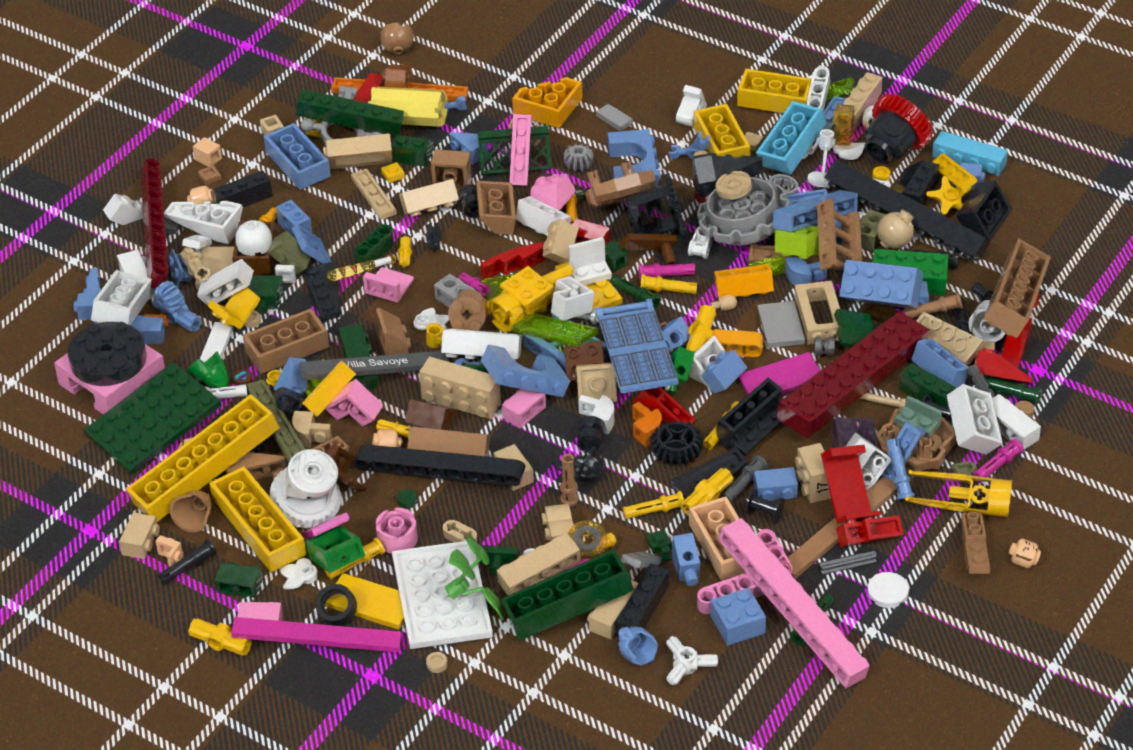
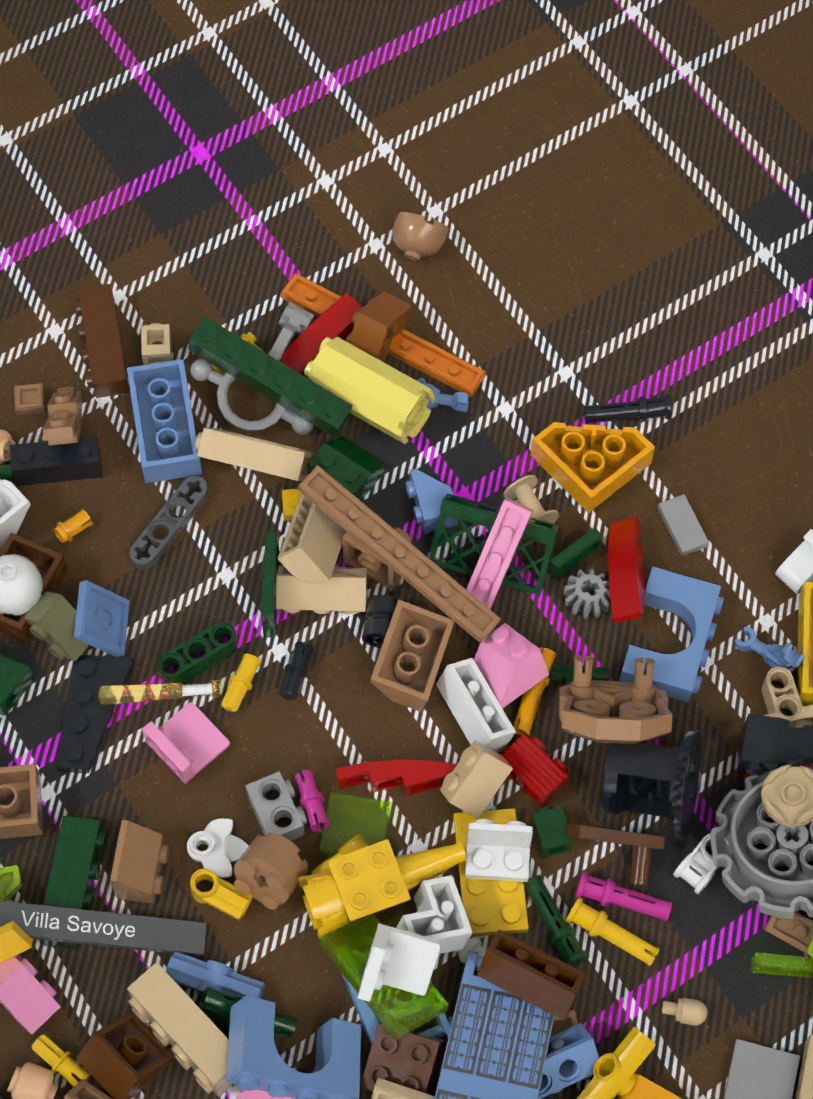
camera: 20 degrees right, 20 degrees up
(207, 152) = (42, 354): light nougat brick -> none
(239, 136) = (102, 340): none -> reddish brown brick
(239, 167) = (64, 417): none -> medium nougat slope
(287, 272) = (43, 656): white tile -> none
(289, 215) = (103, 551): medium blue brick -> none
(324, 201) = (172, 524): none -> dark grey beam
(373, 194) = (249, 536): tan tile -> none
(400, 202) = (268, 603): none -> dark green tile
(413, 170) = (311, 543): none -> tan brick
(466, 158) = (399, 554): none -> medium nougat tile
(474, 343) = (258, 952): white brick -> none
(561, 143) = (574, 553): none -> dark green tile
(562, 309) = (399, 961): none -> white bracket
(573, 73) = (640, 409): none -> black pin
(594, 138) = (625, 570): none -> red slope
(635, 297) = (531, 974): none -> reddish brown brick
(744, 281) = (733, 985): light orange brick -> none

